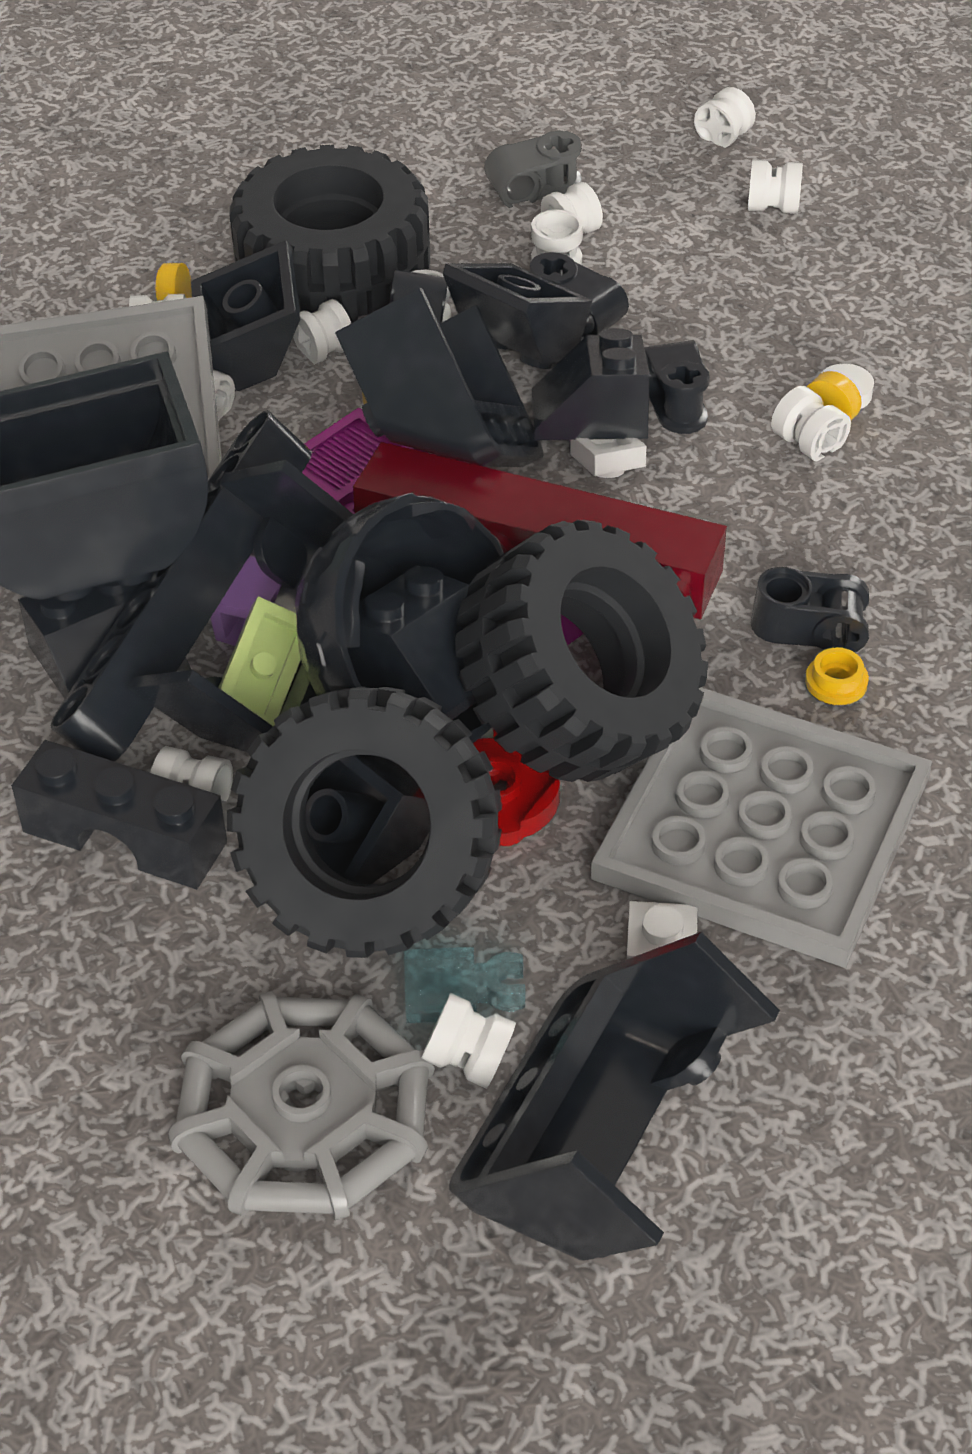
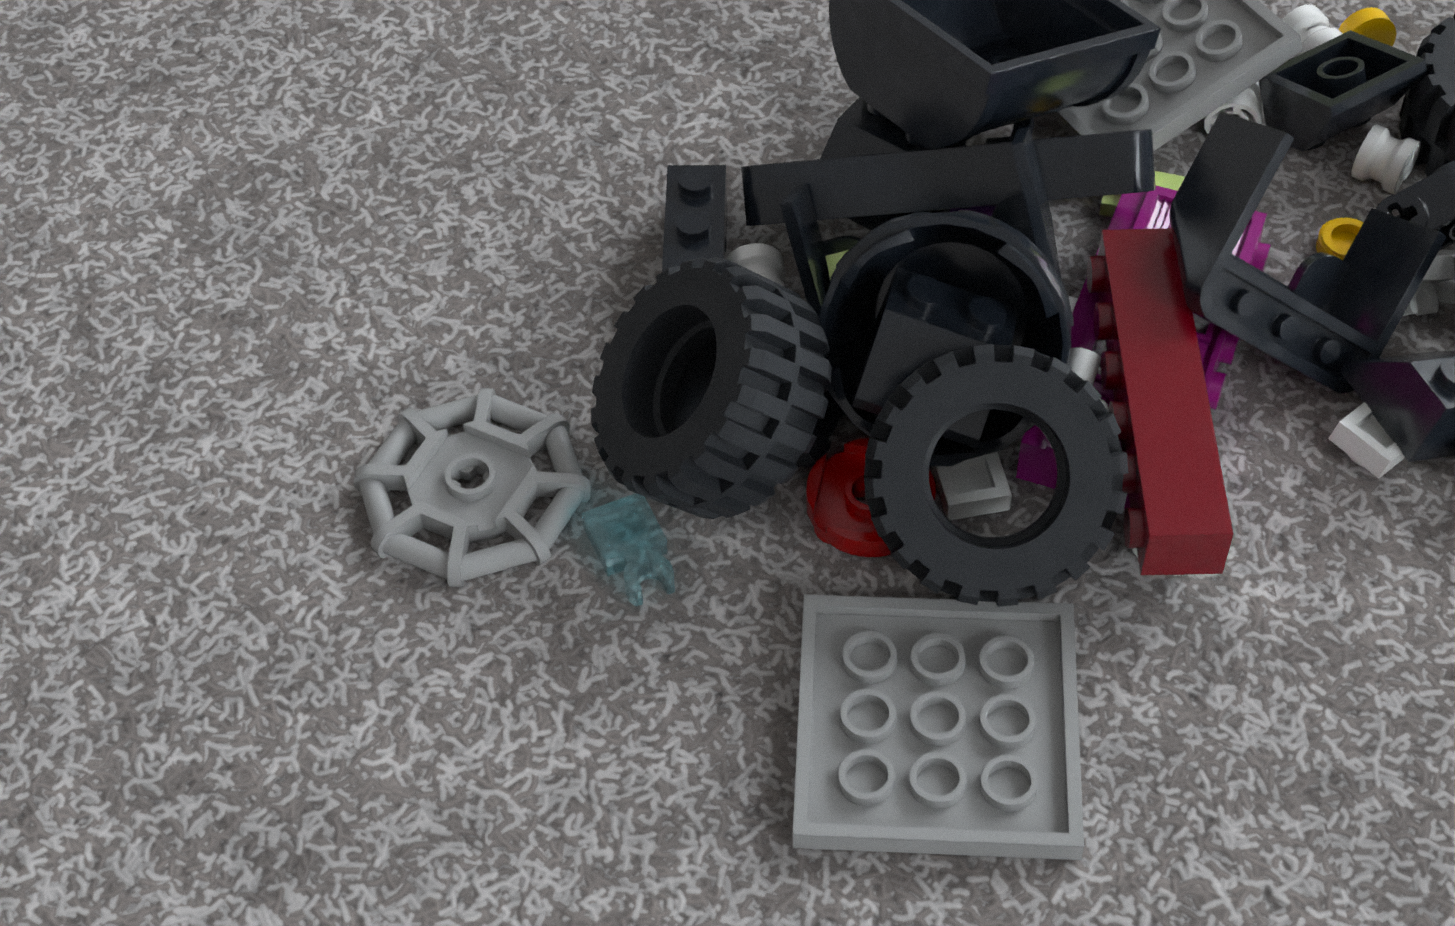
camera: 70 degrees right, 5 degrees up
(468, 1040) = (563, 566): white wheel -> none
(591, 1088) = (516, 679): black windscreen -> none
(658, 924) = (759, 684): white plate -> none
(806, 608) = (1253, 691): black piece -> none
(834, 664) = (1178, 719): yellow plate -> none

